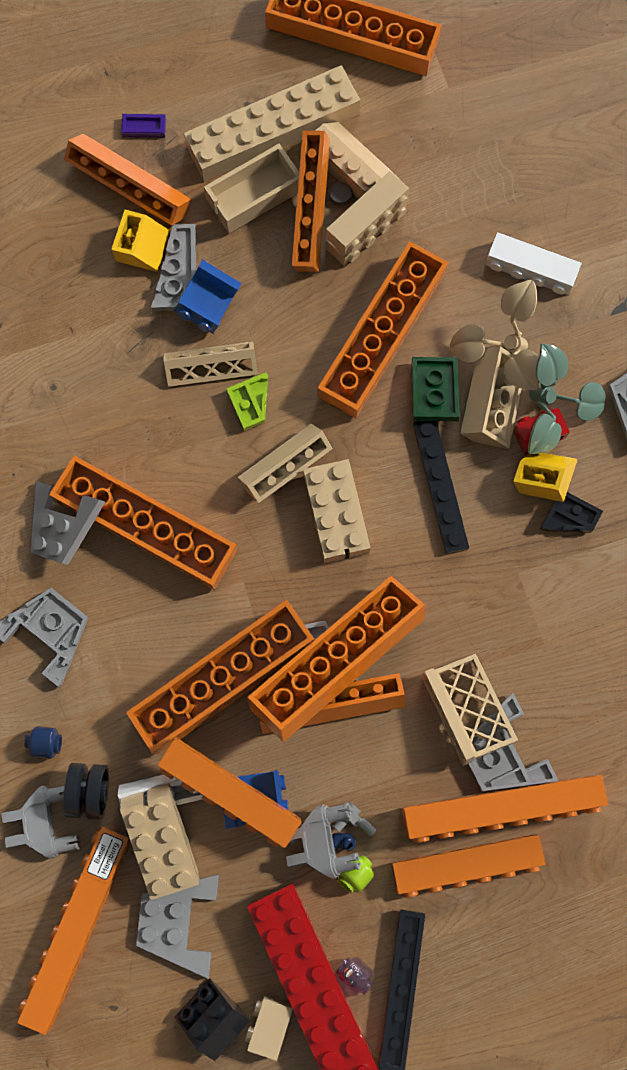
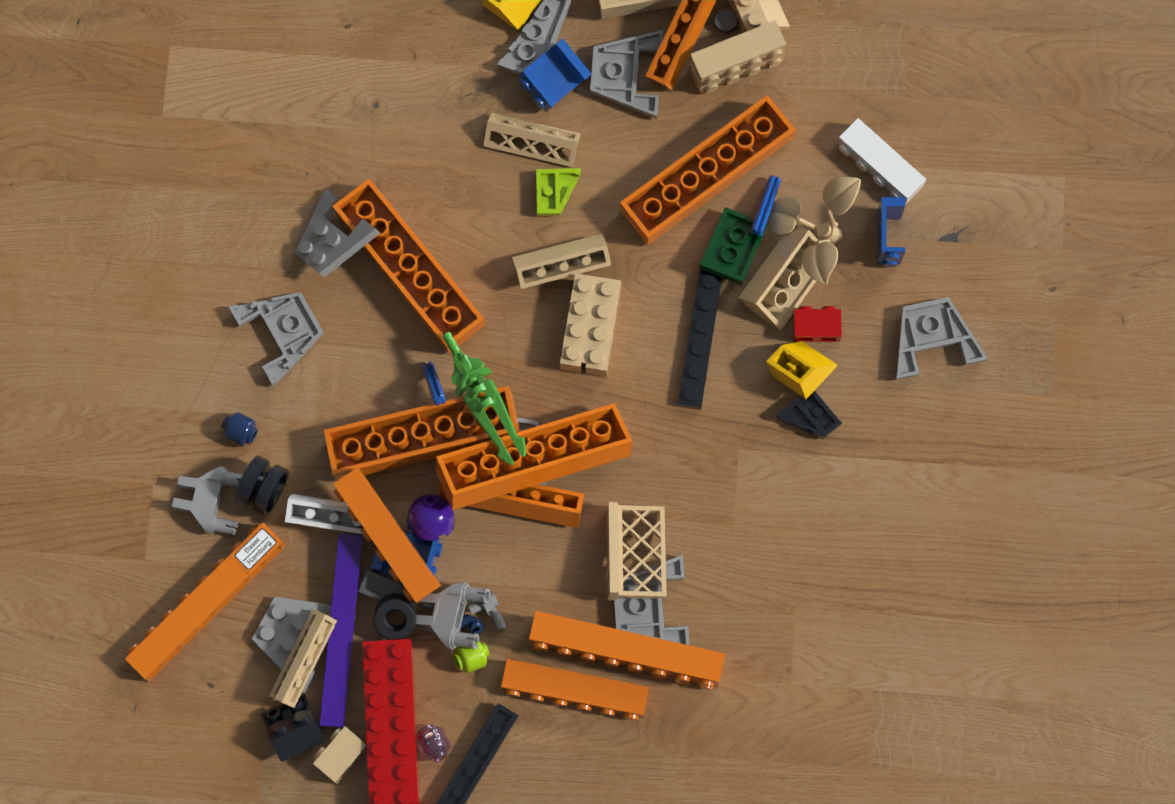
camera: 25 degrees right, 0 degrees up
(159, 841) = (308, 554): tan piece -> none
(194, 947) = (303, 658): none -> tan fence
(213, 625) = (433, 383): none -> blue axle
(220, 902) = (341, 638): none -> dark purple tile
(243, 843) = (379, 586): none -> dark grey plate
(247, 606) = (469, 377): none -> bright green sword
(262, 755) = (430, 517): none -> dark purple cylinder
(263, 275) = (617, 70): none -> light grey wing
(269, 881) = (395, 632): none -> black tyre
(448, 341) = (765, 205): none -> blue axle
(549, 368) = (843, 267): sand green plant -> none
(563, 324) = (889, 209): none -> blue panel

